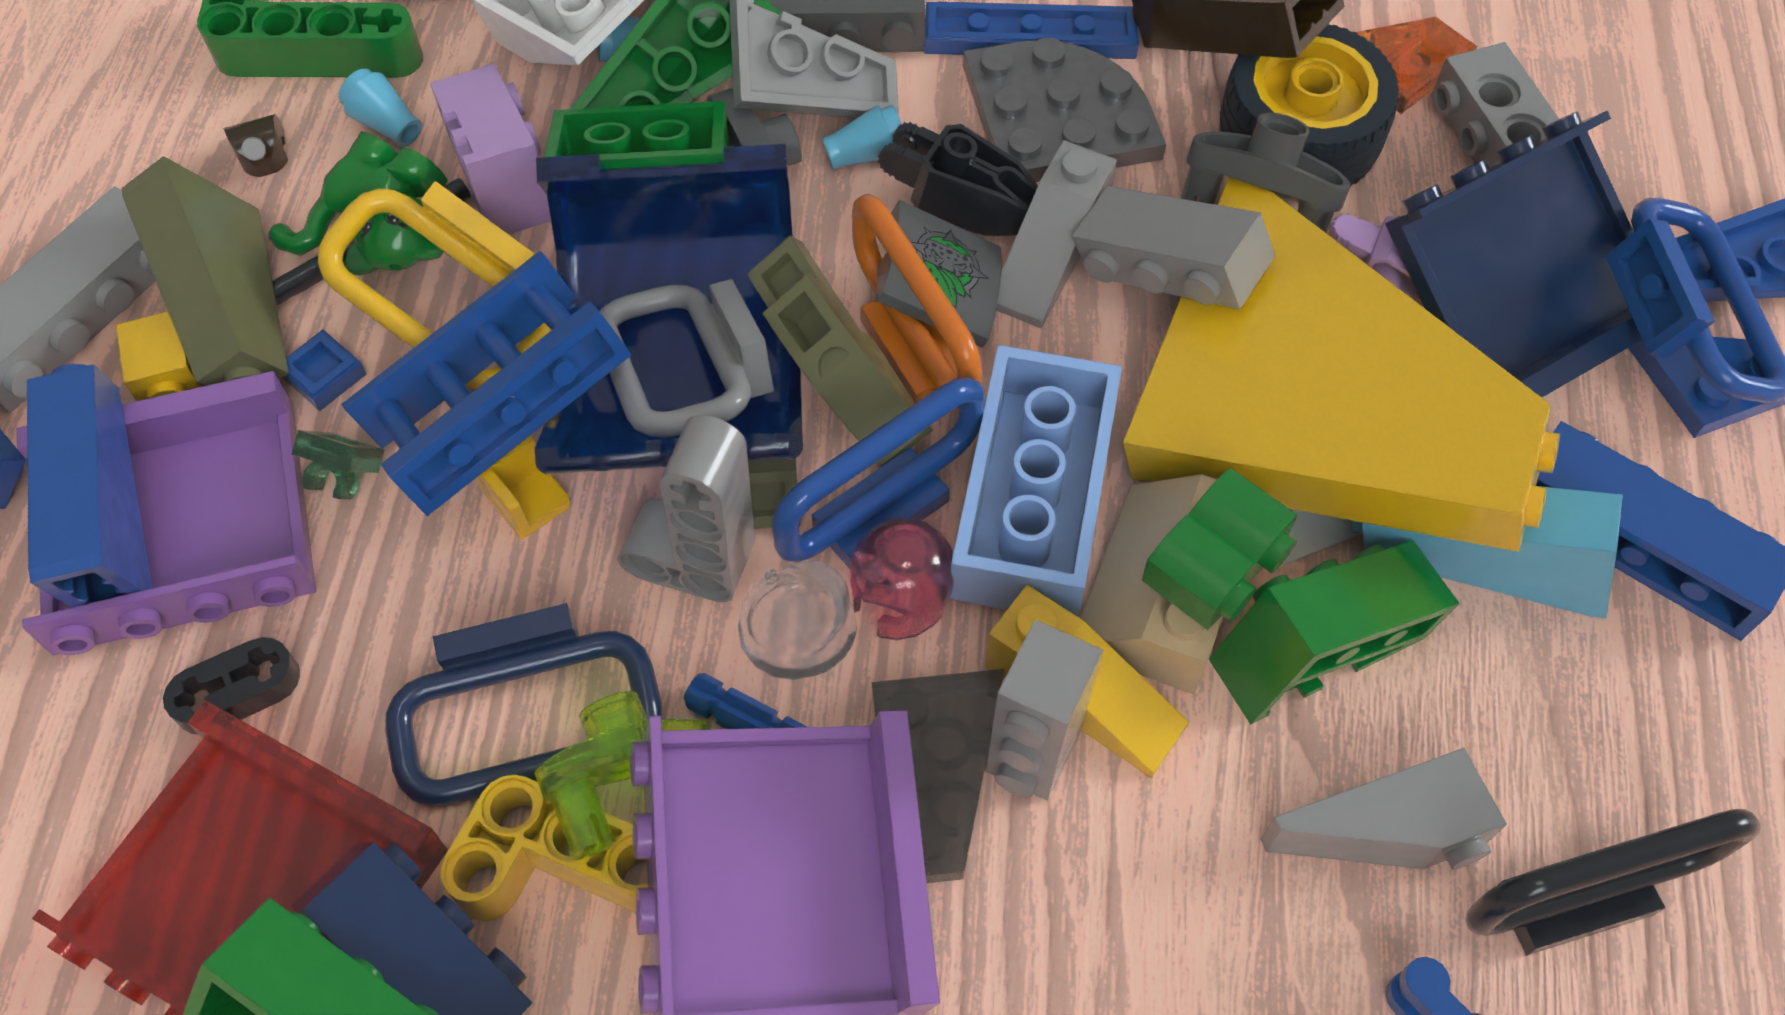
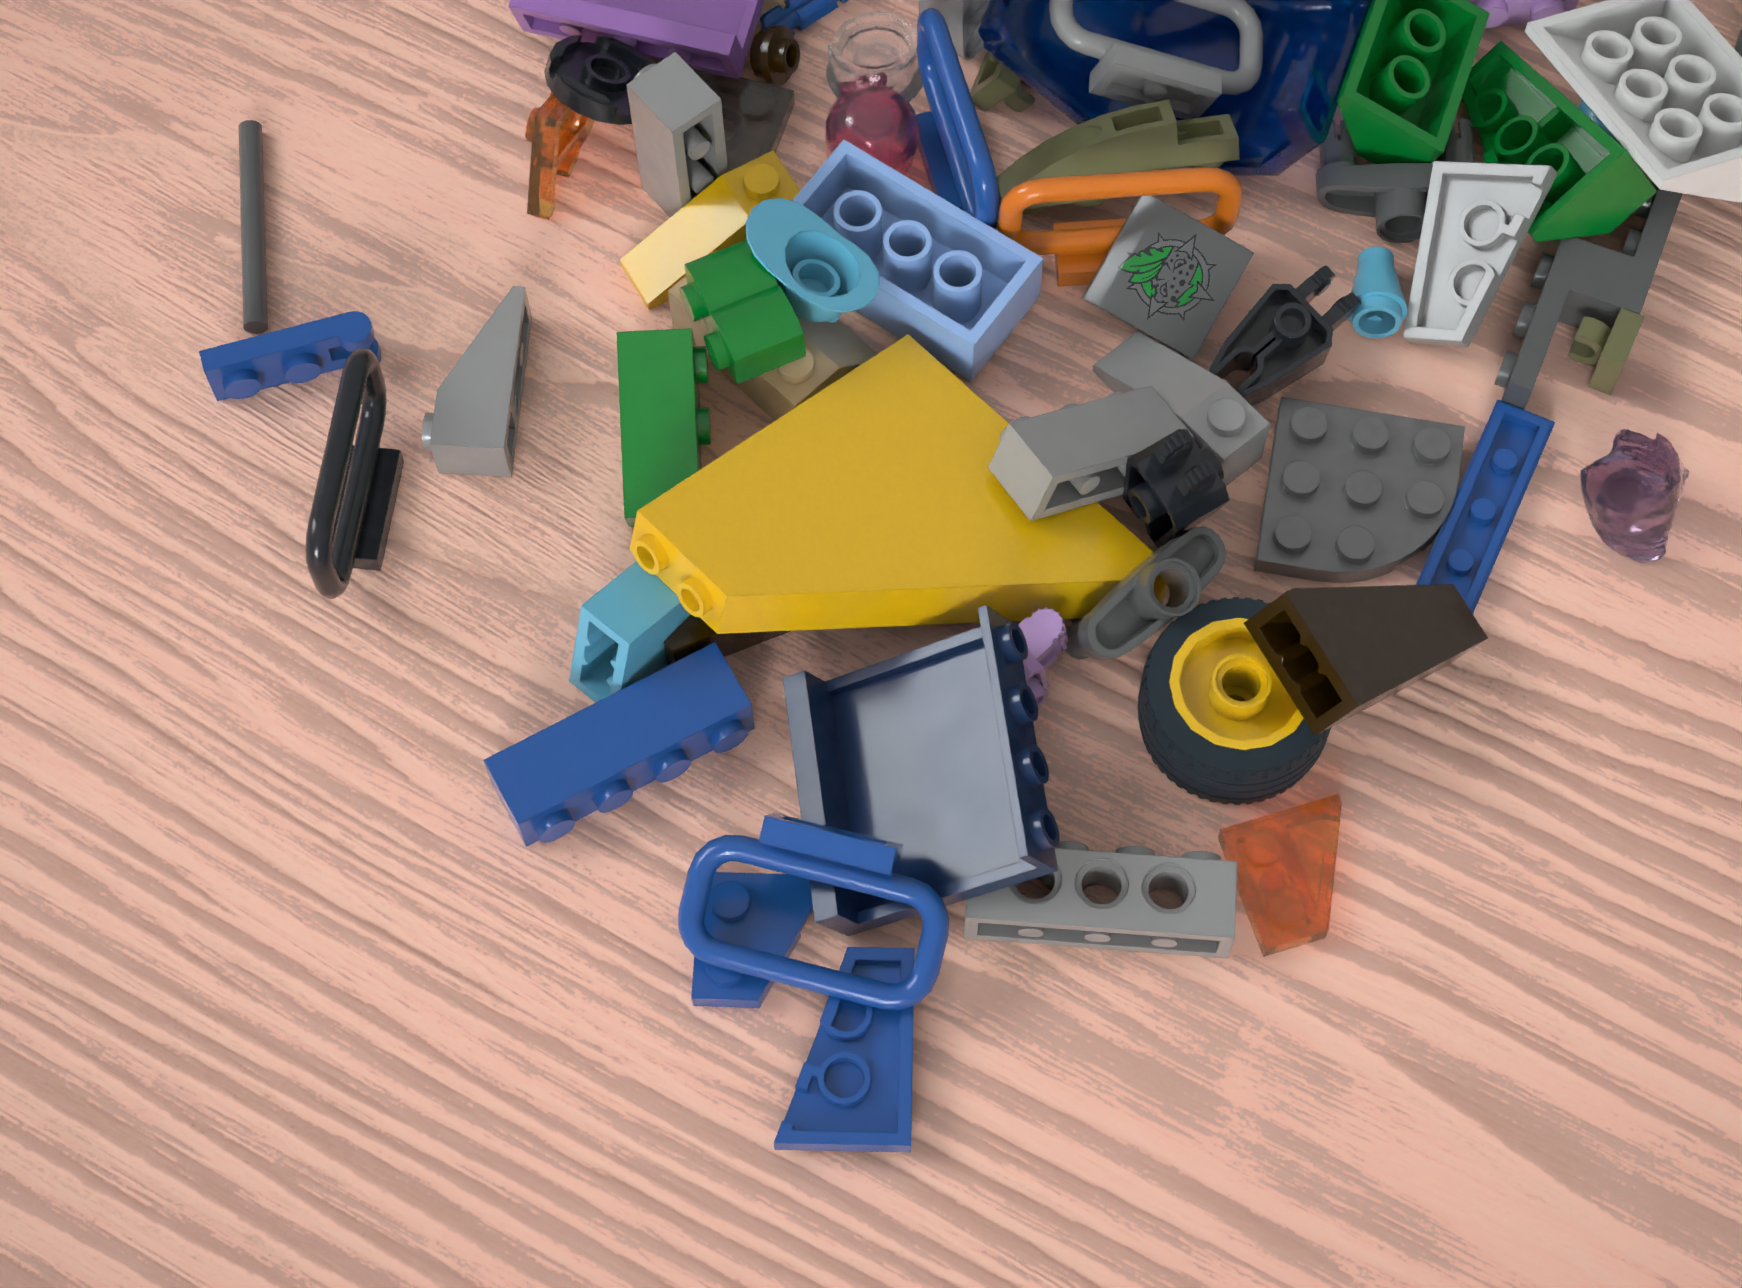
camera: 115 degrees right, 5 degrees up
(837, 710) = (774, 54): none -> dark brown plate
(988, 847) = (594, 76): none -> black tile
(1050, 884) = (556, 143): none -> clear orange wing
(1135, 502) = (811, 261): none -> medium azure piece
(1180, 156) = (1174, 486): none -> black hinge

